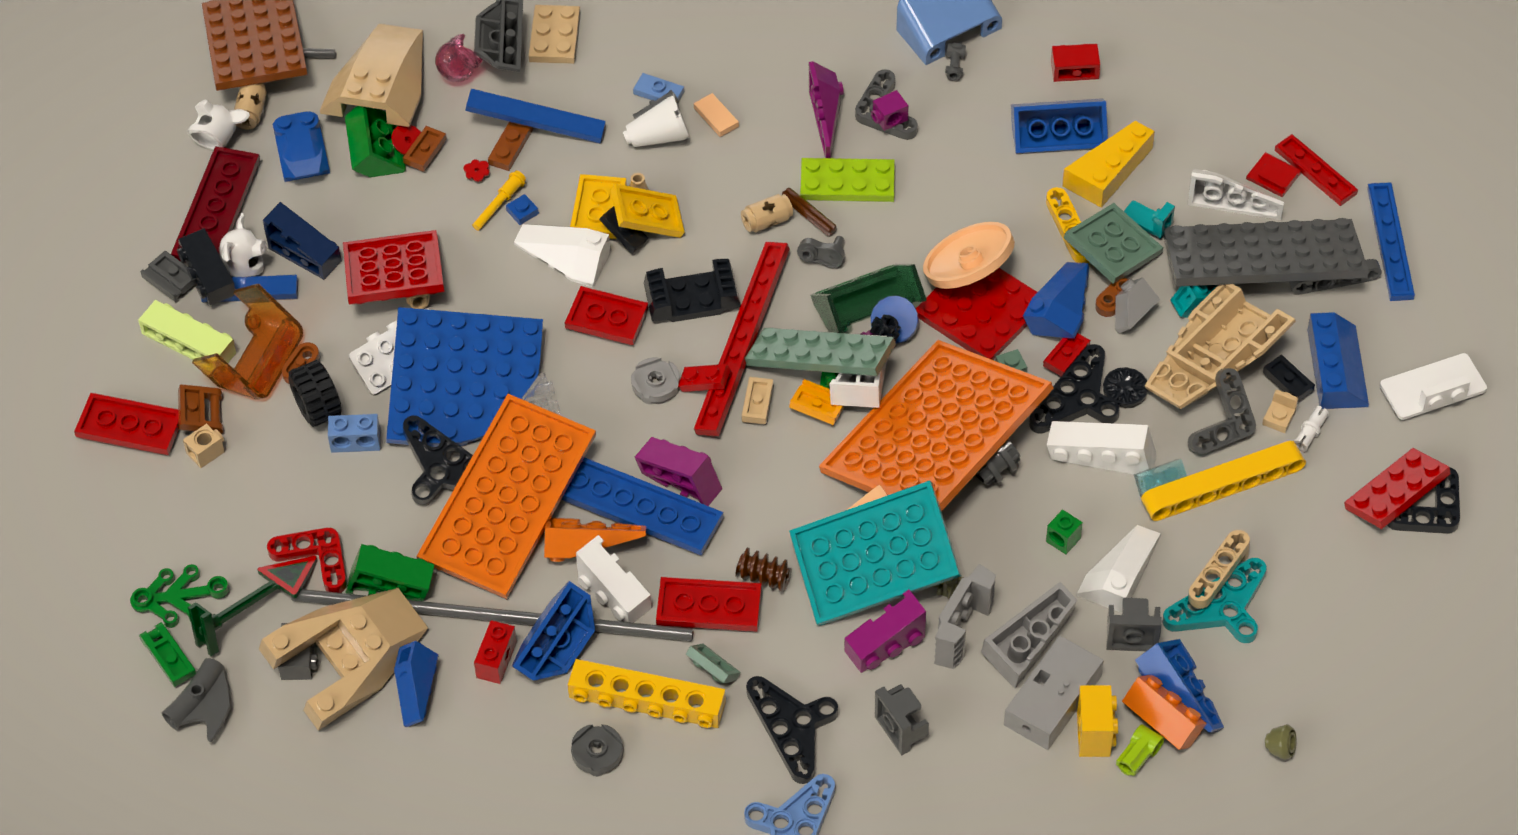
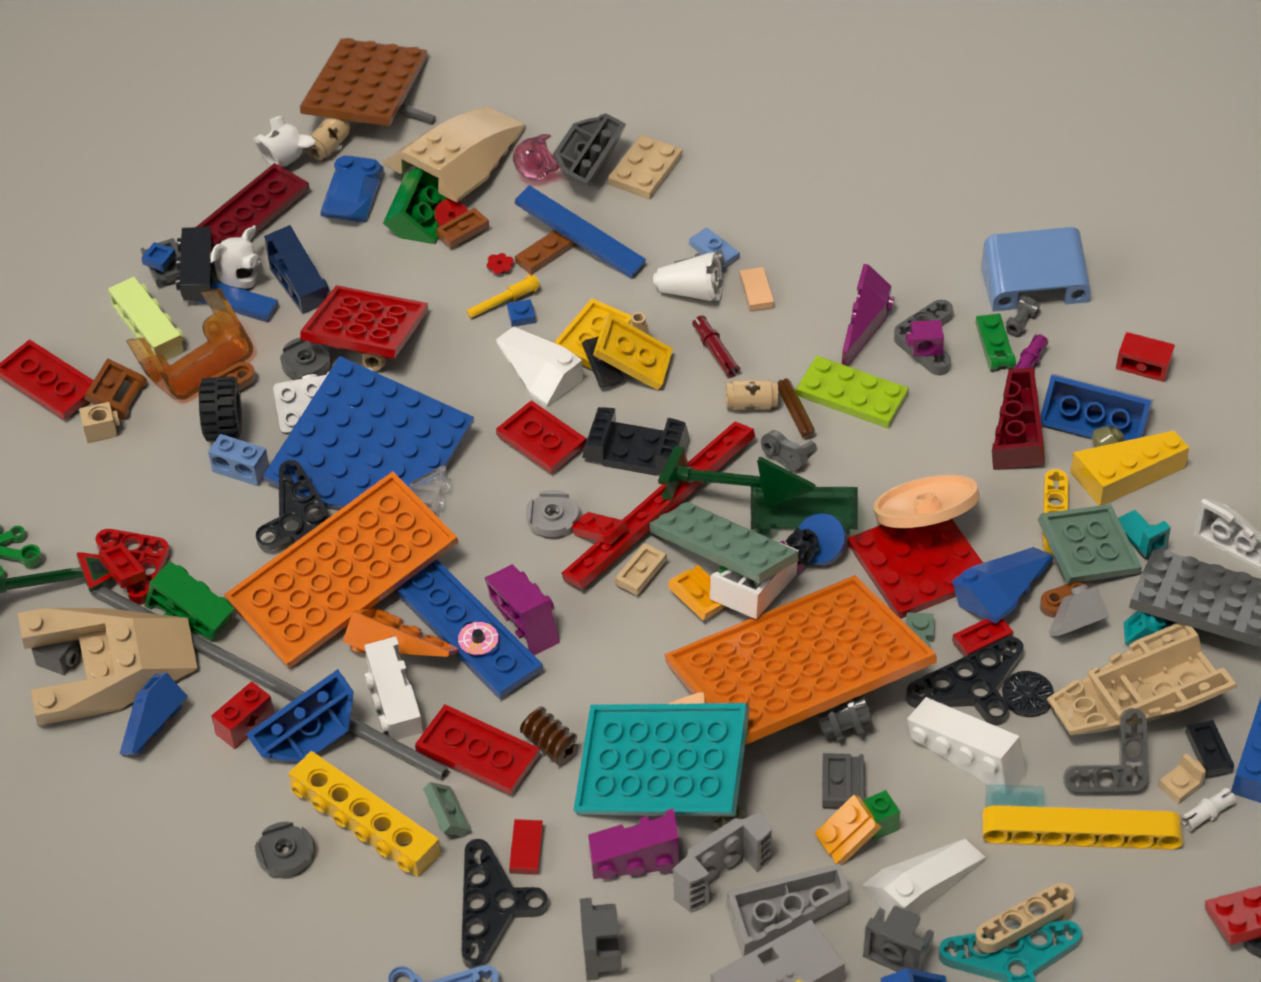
camera: 25 degrees right, 5 degrees down
(166, 273) = (158, 256): none -> blue plate
(311, 564) = (122, 565): none -> red plate
(357, 331) = (297, 368): none -> dark grey plate
(657, 511) = (478, 638): none -> bright pink piece
(703, 175) = (711, 339): none -> dark red pin
(793, 668) = (526, 846): none -> red tile
(839, 283) = (776, 482): none -> dark green piece
(943, 92) = (995, 341): none -> green plate
(980, 96) = (1031, 355): none -> magenta pin
(1007, 161) = (1019, 426): none -> dark red wedge
(1018, 515) = (841, 778): none -> dark grey plate
(1046, 553) = (847, 830): none -> light orange plate
(1081, 145) = (1107, 435): none -> olive cone

